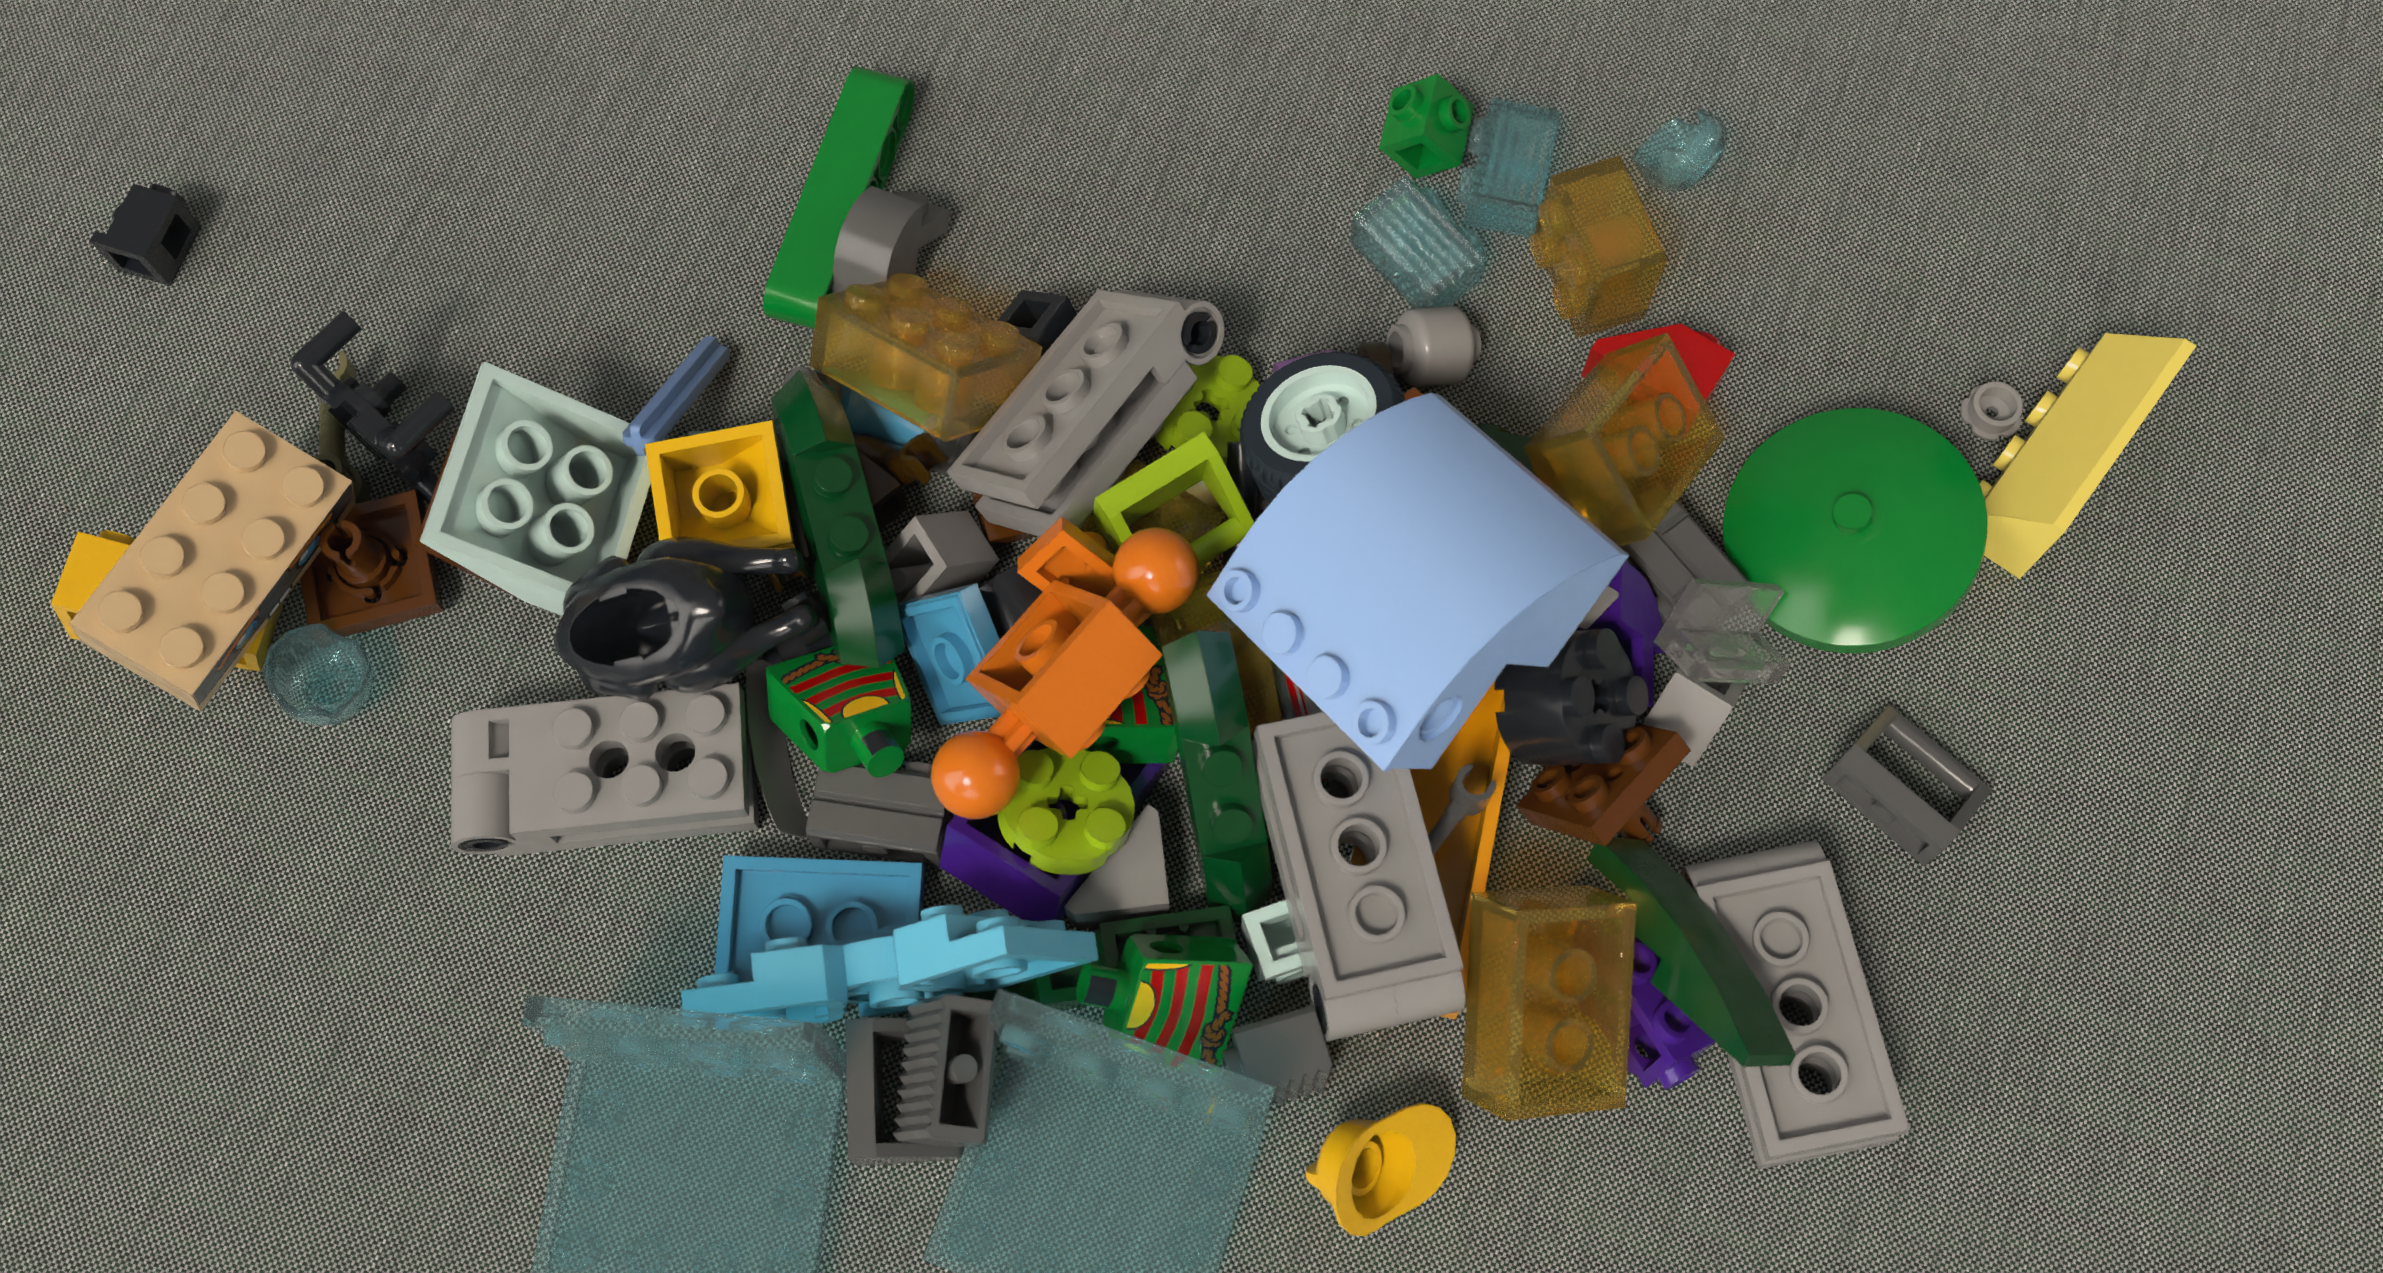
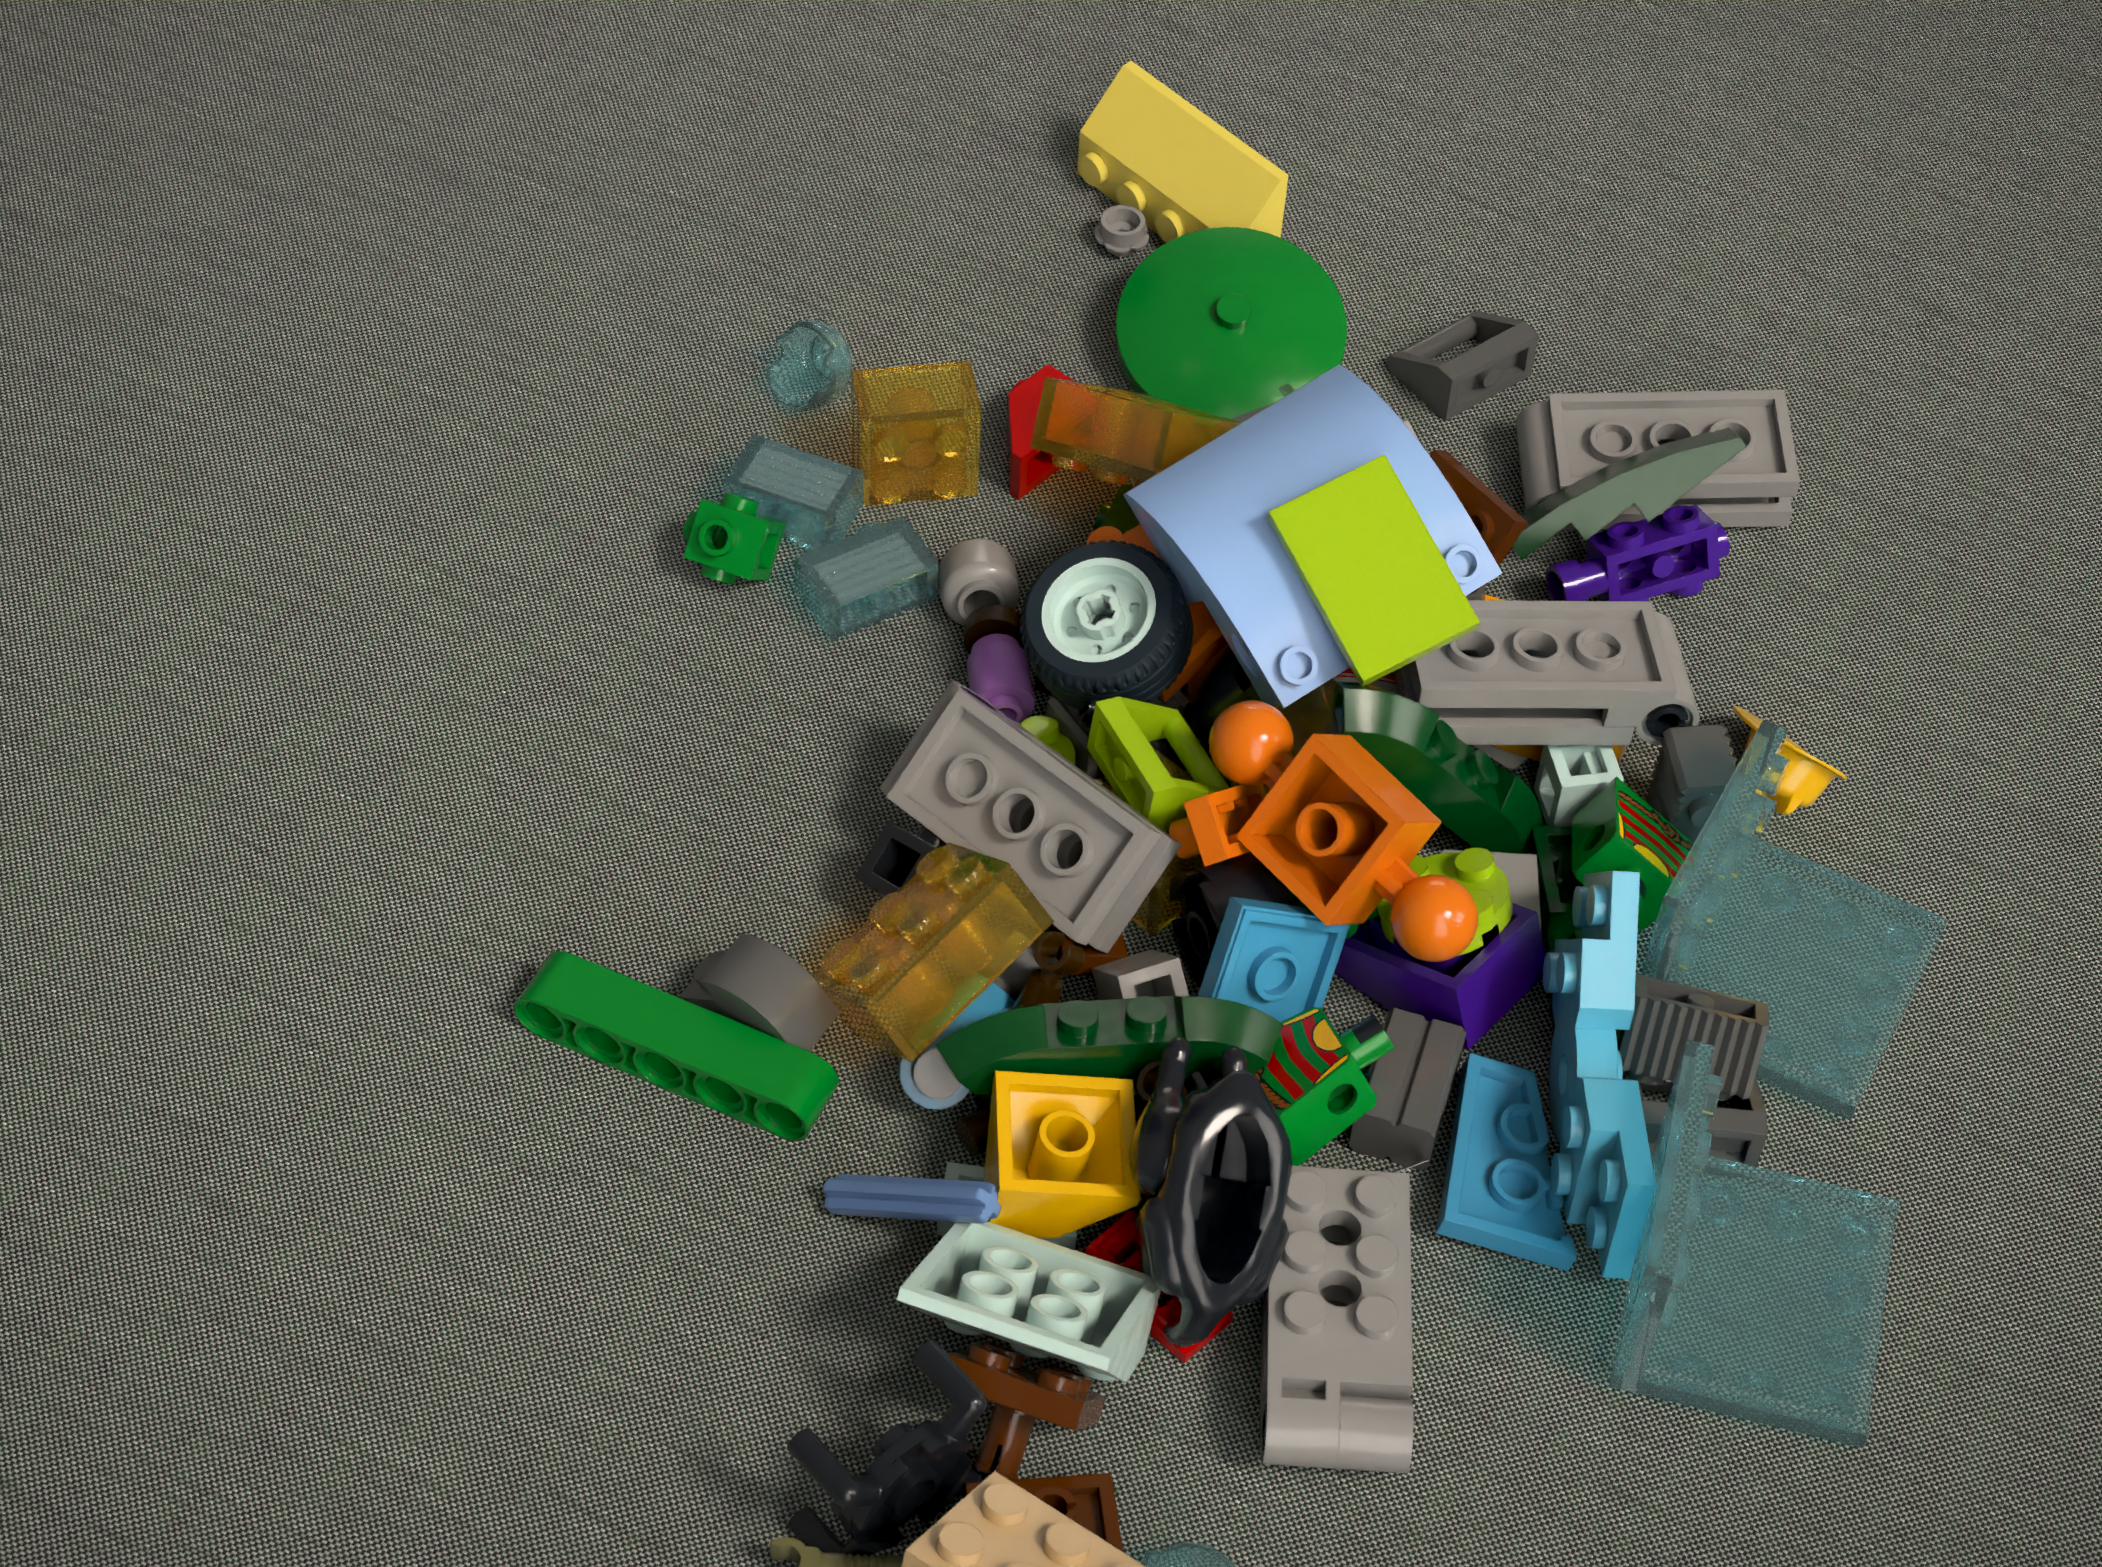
camera: 85 degrees left, 20 degrees down
(1330, 626) = (1373, 570): none -> lime tile
(1548, 1001) = (1626, 558): clear yellow brick -> none

